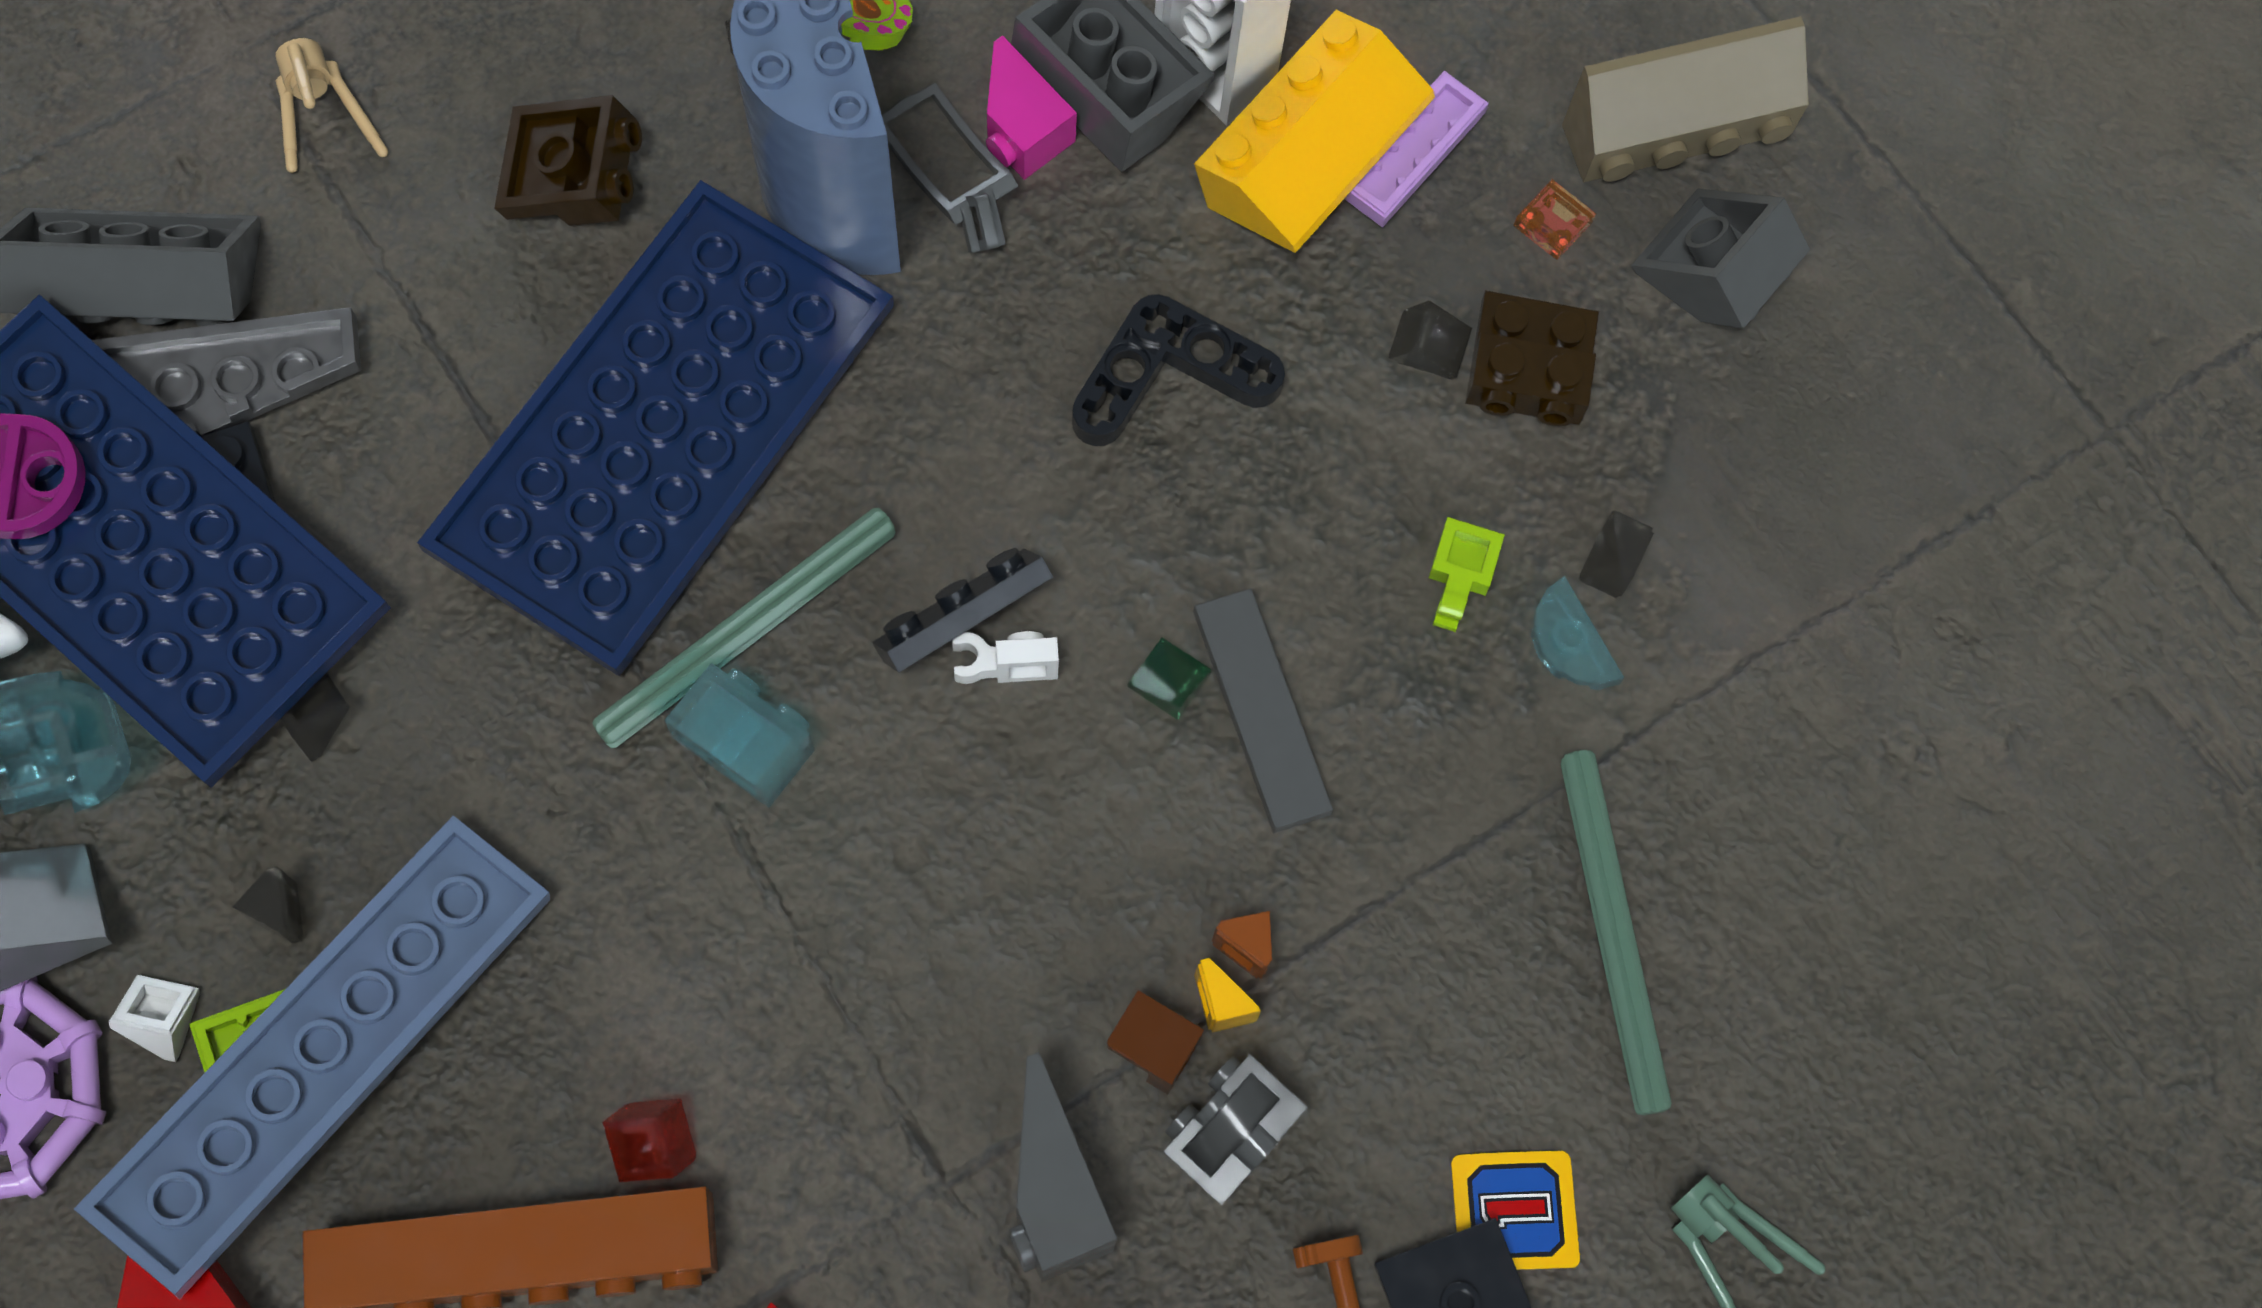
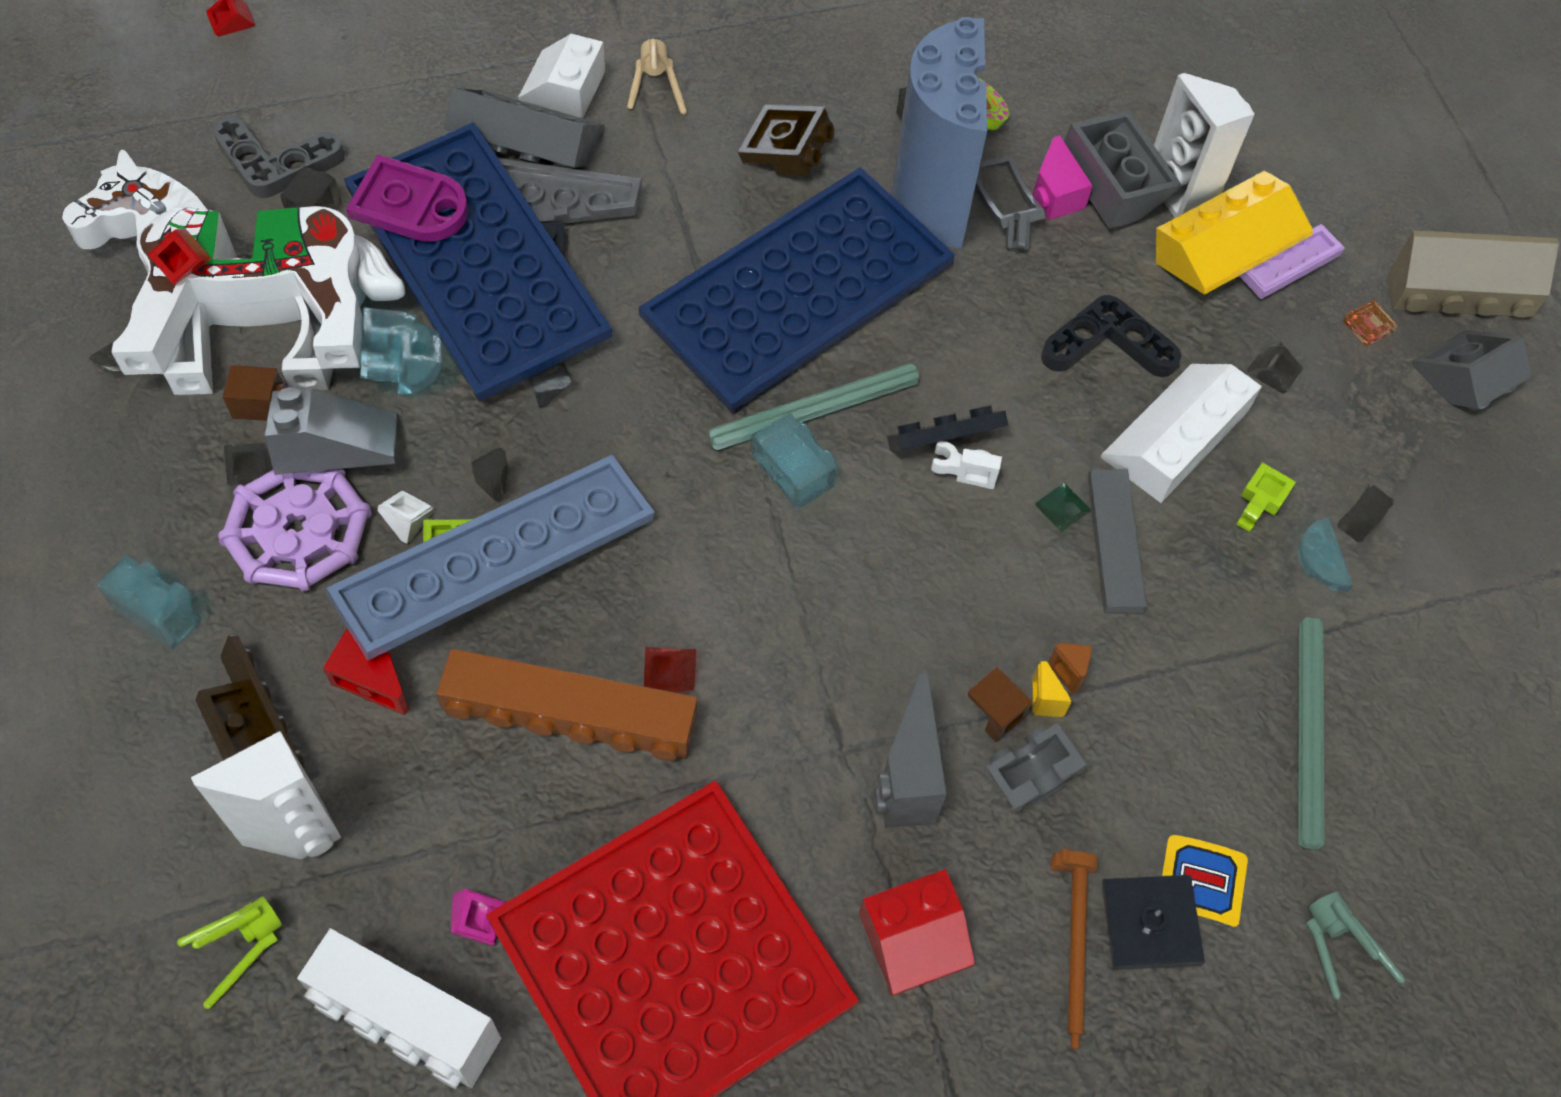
camera: 20 degrees right, 10 degrees down
(166, 147) = (566, 75): none -> white slope
(1312, 490) = (1182, 426): none -> white slope
(1533, 359) = (1337, 394): dark brown plate -> none

